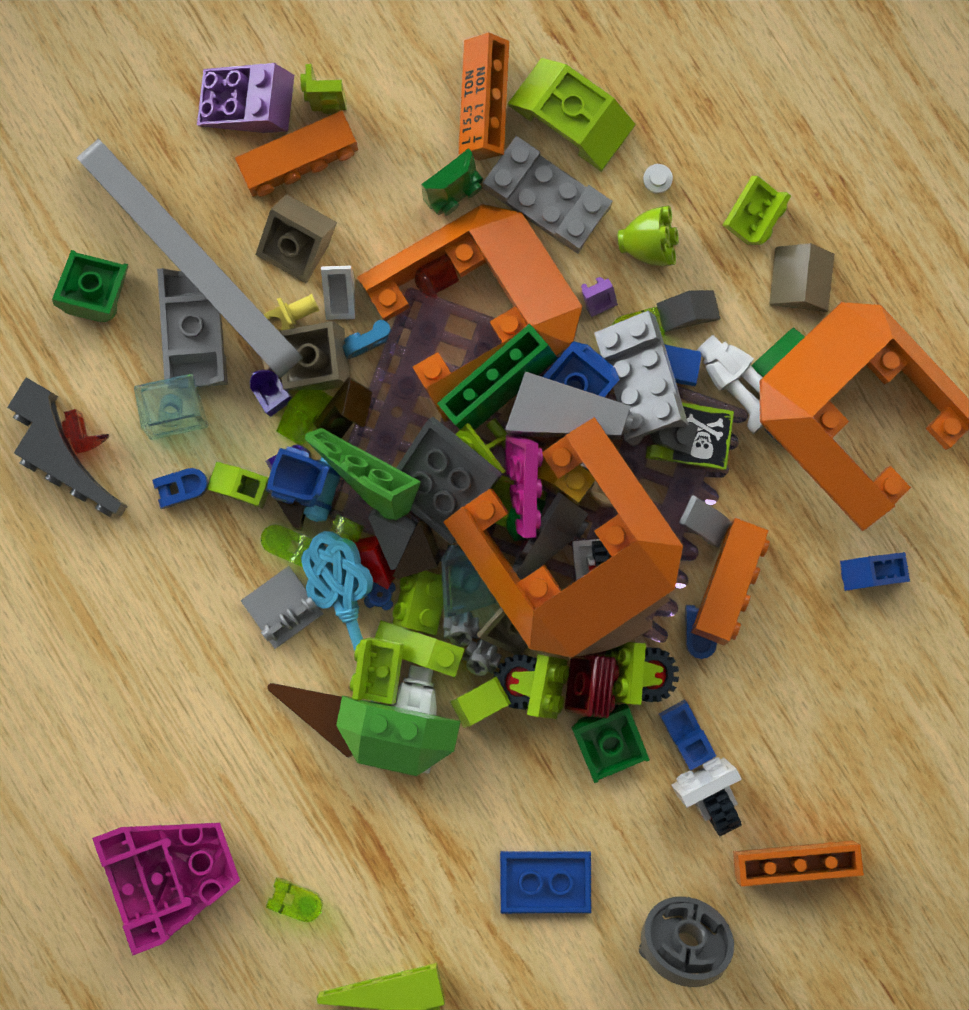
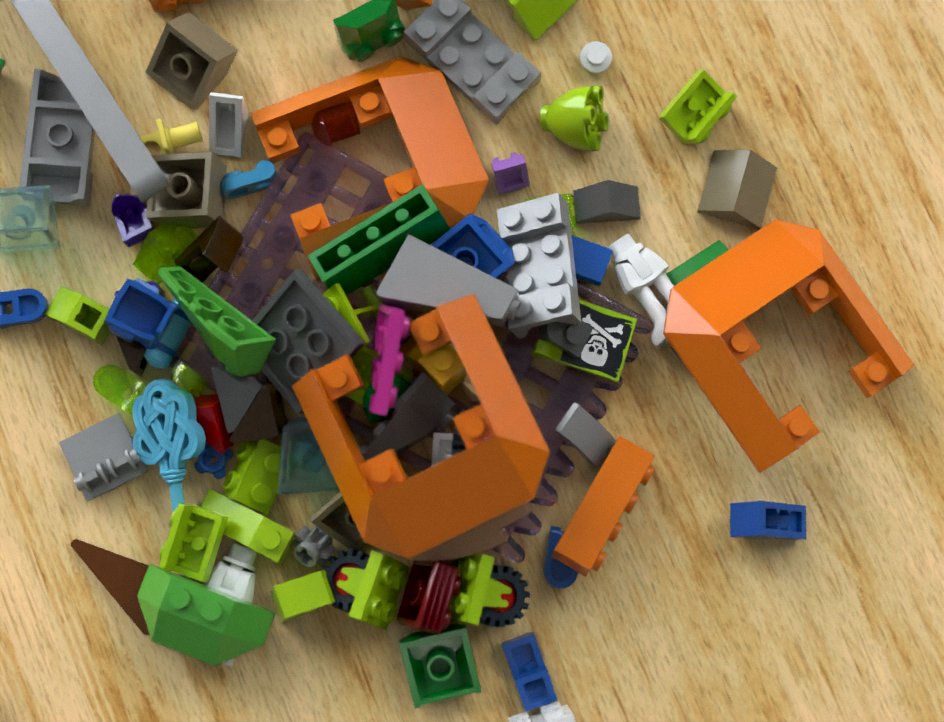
camera: 10 degrees right, 5 degrees down
(461, 629) = (295, 510): light grey gear -> none

